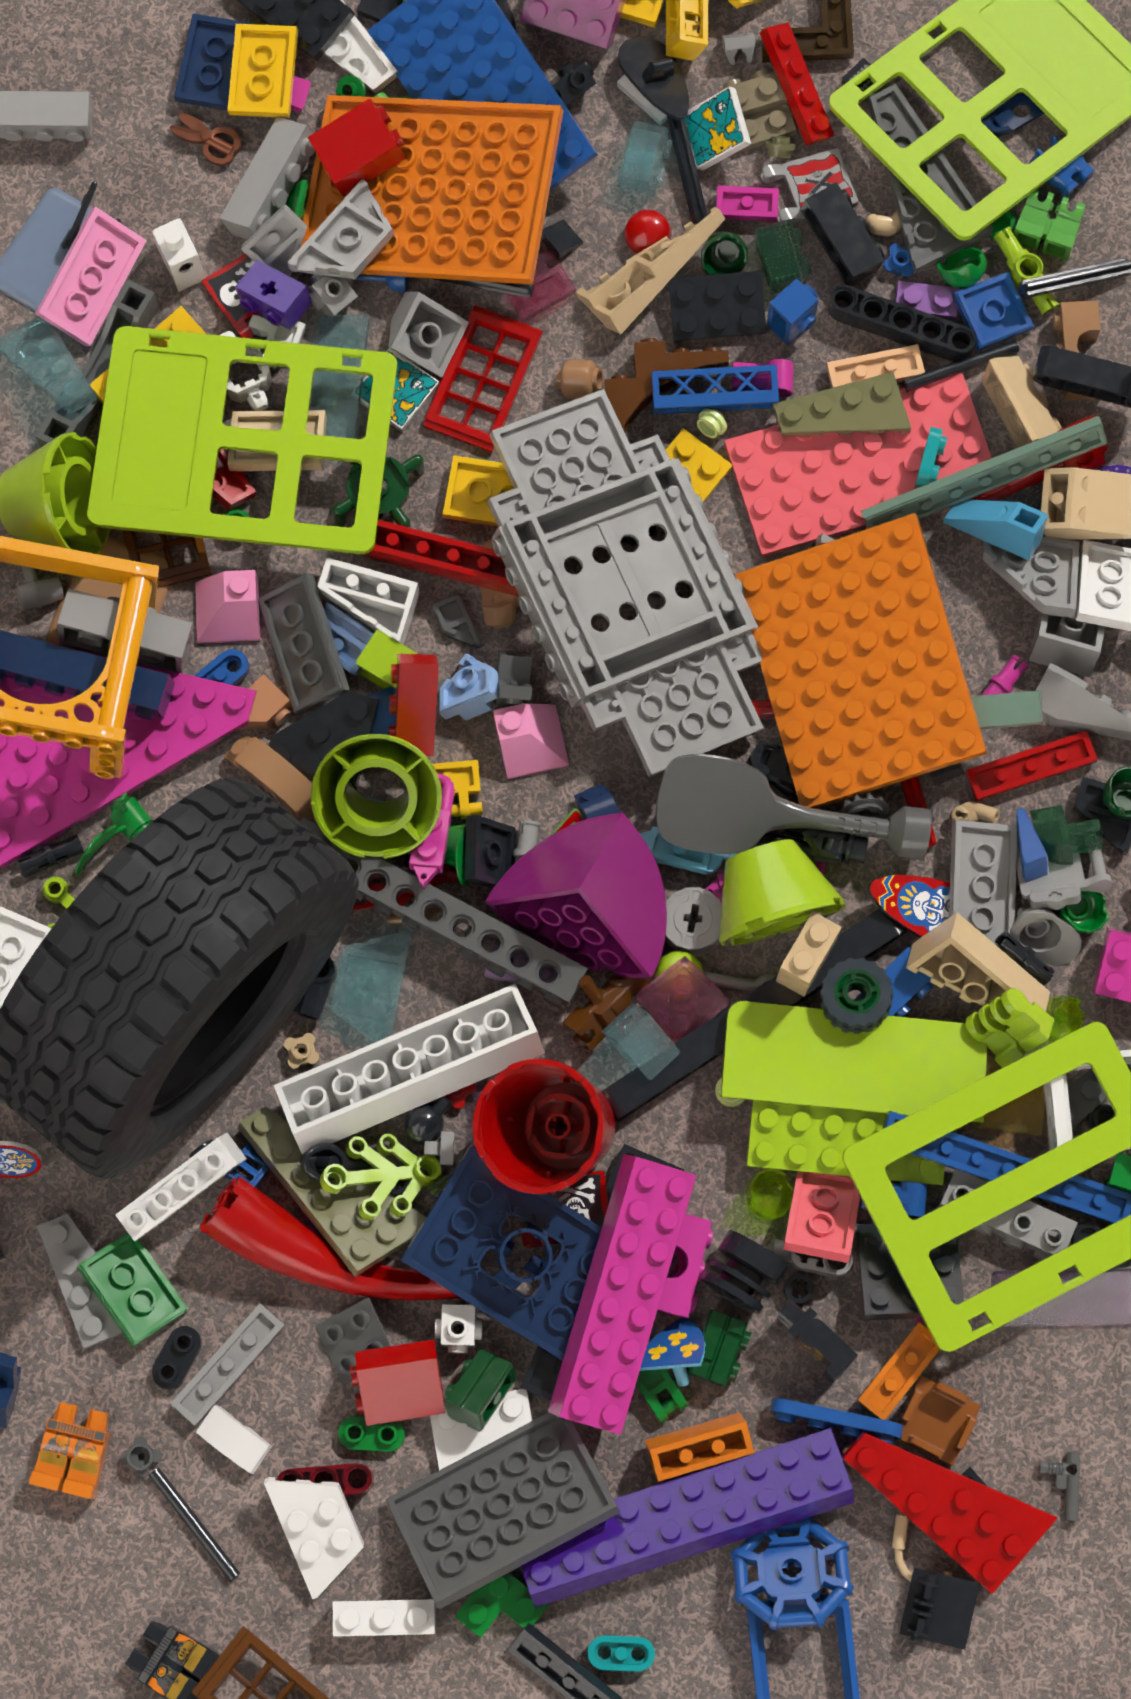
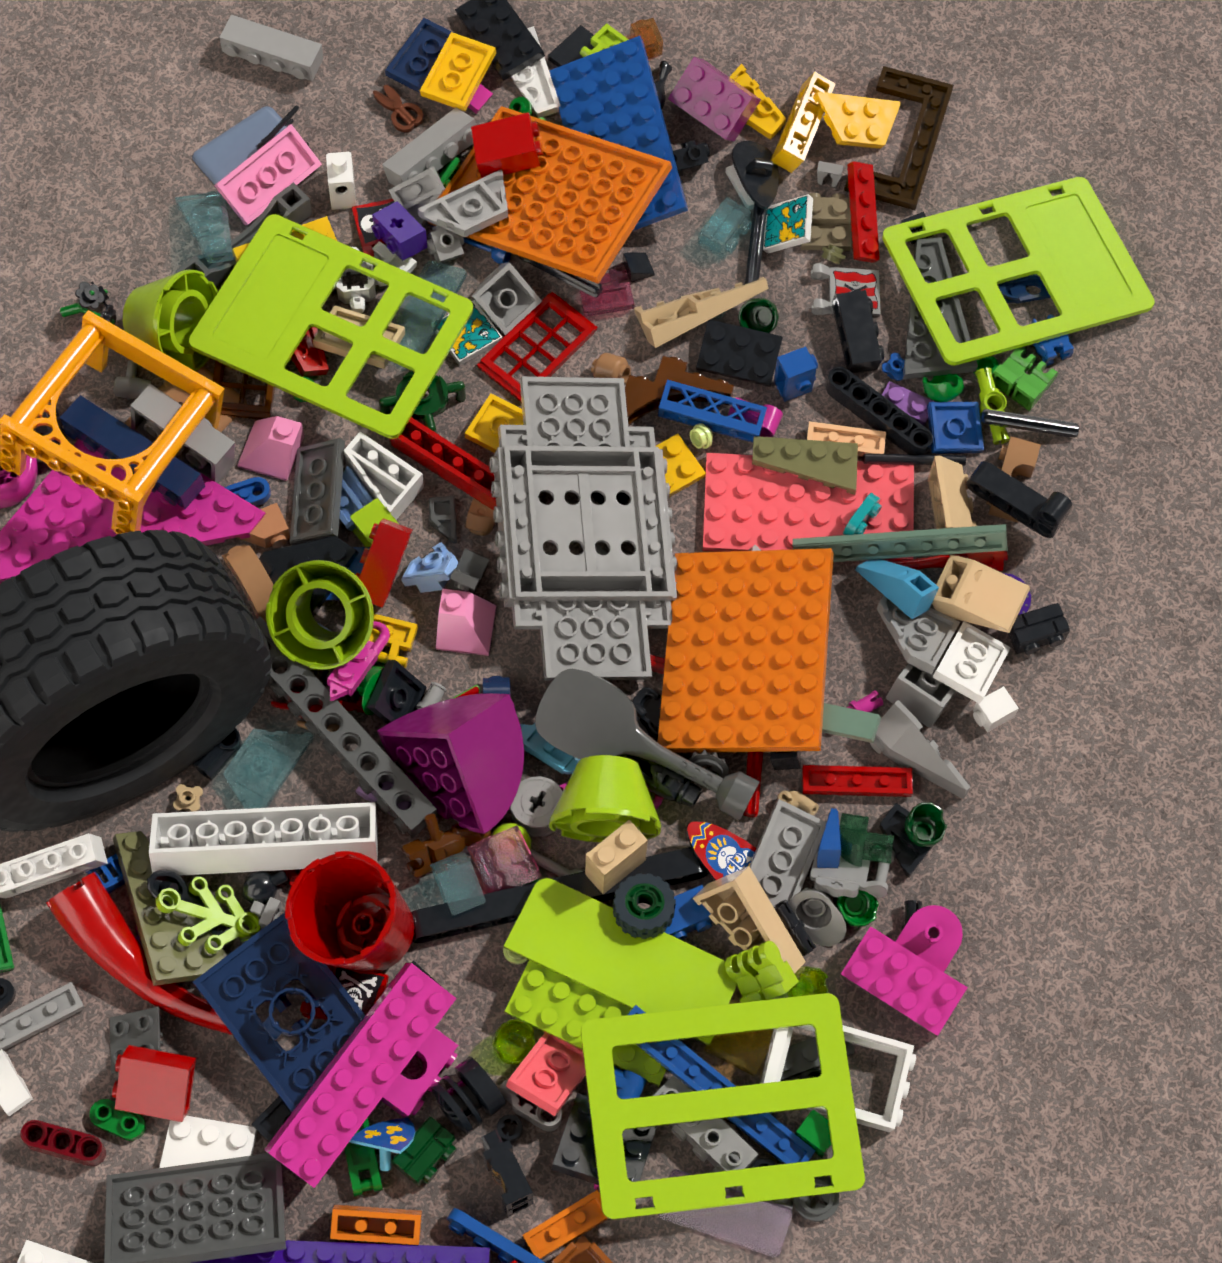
camera: 15 degrees right, 10 degrees down
(316, 1527) = (39, 1176): white wing -> none
(452, 1316) = (219, 1048): white brick -> none
(479, 1390) = (216, 1113): dark green brick -> none
(646, 229) = (706, 278): red hair -> none
(748, 203) = (792, 286): dark pink plate -> none
(781, 255) = (804, 329): clear green brick -> none
(883, 225) = (892, 336): tan arm -> none

